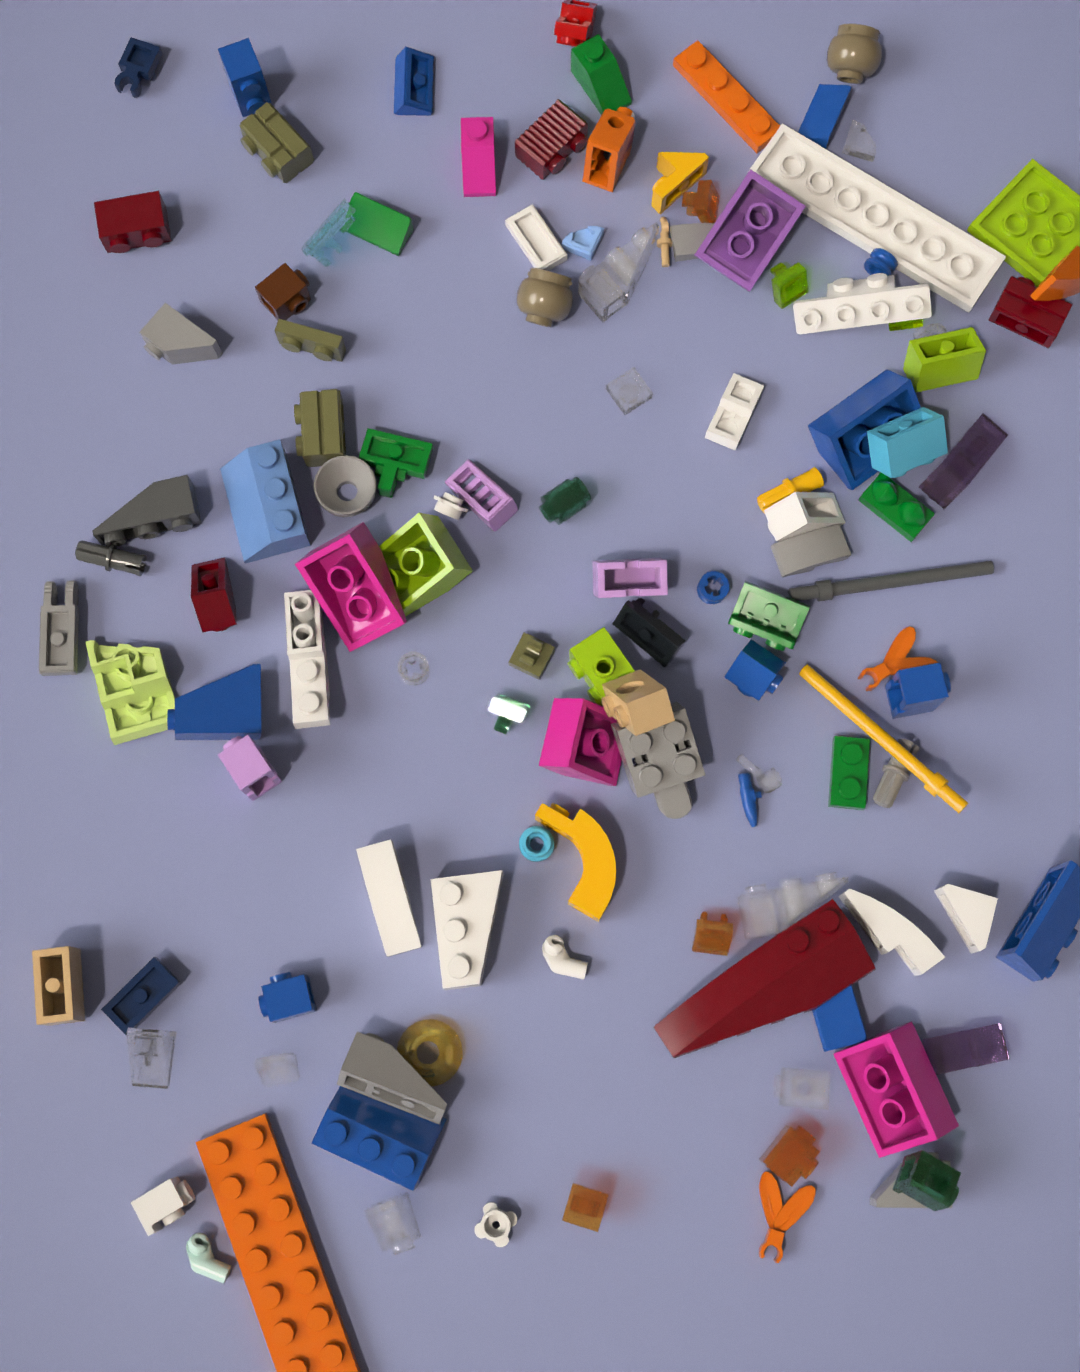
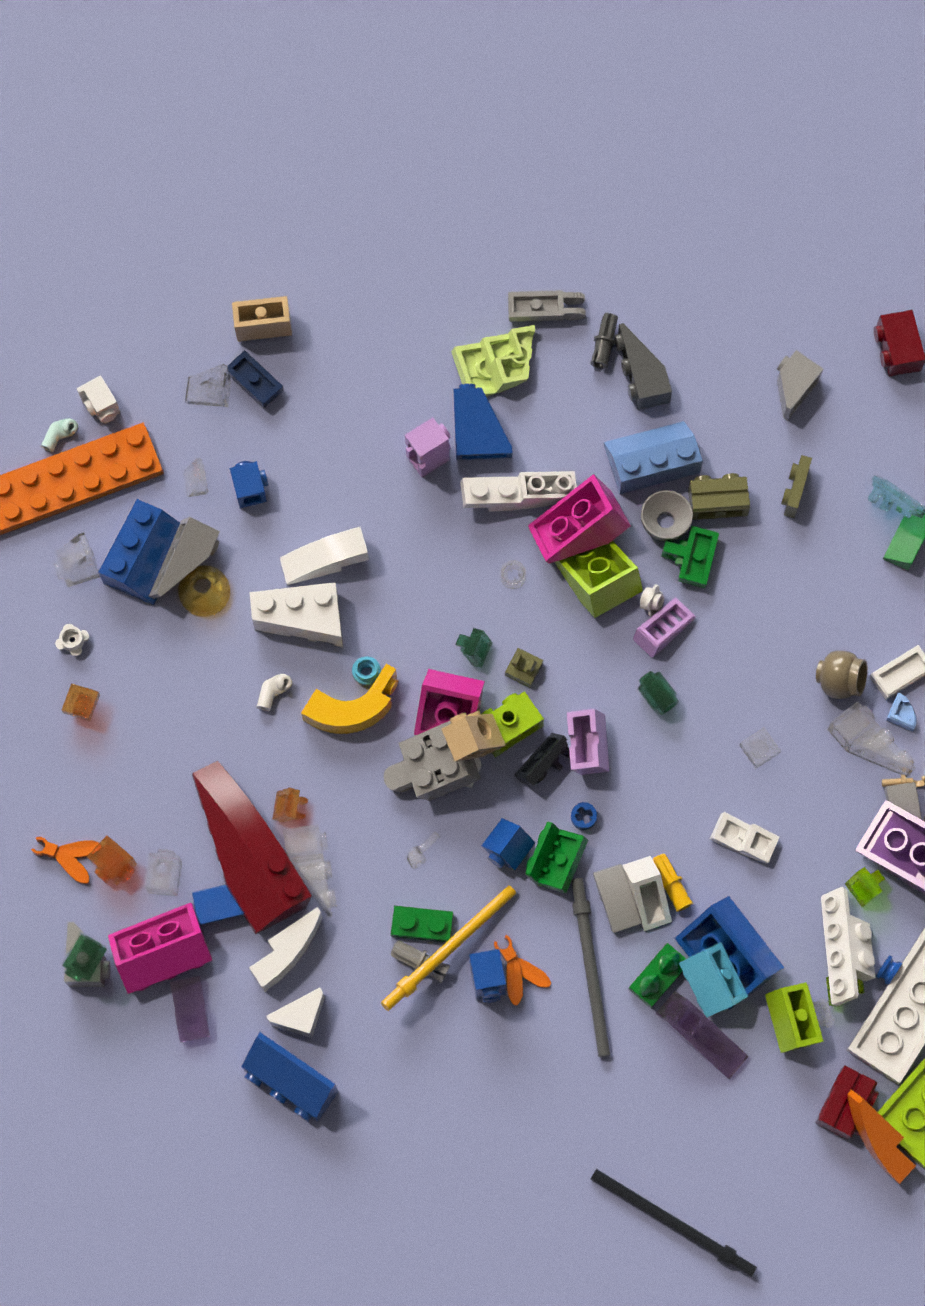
camera: 90 degrees right, 5 degrees down
(213, 595) = (573, 417): dark red slope -> none
(284, 292) = (840, 464): reddish brown brick -> none
(749, 798) = (401, 841): blue helmet -> none

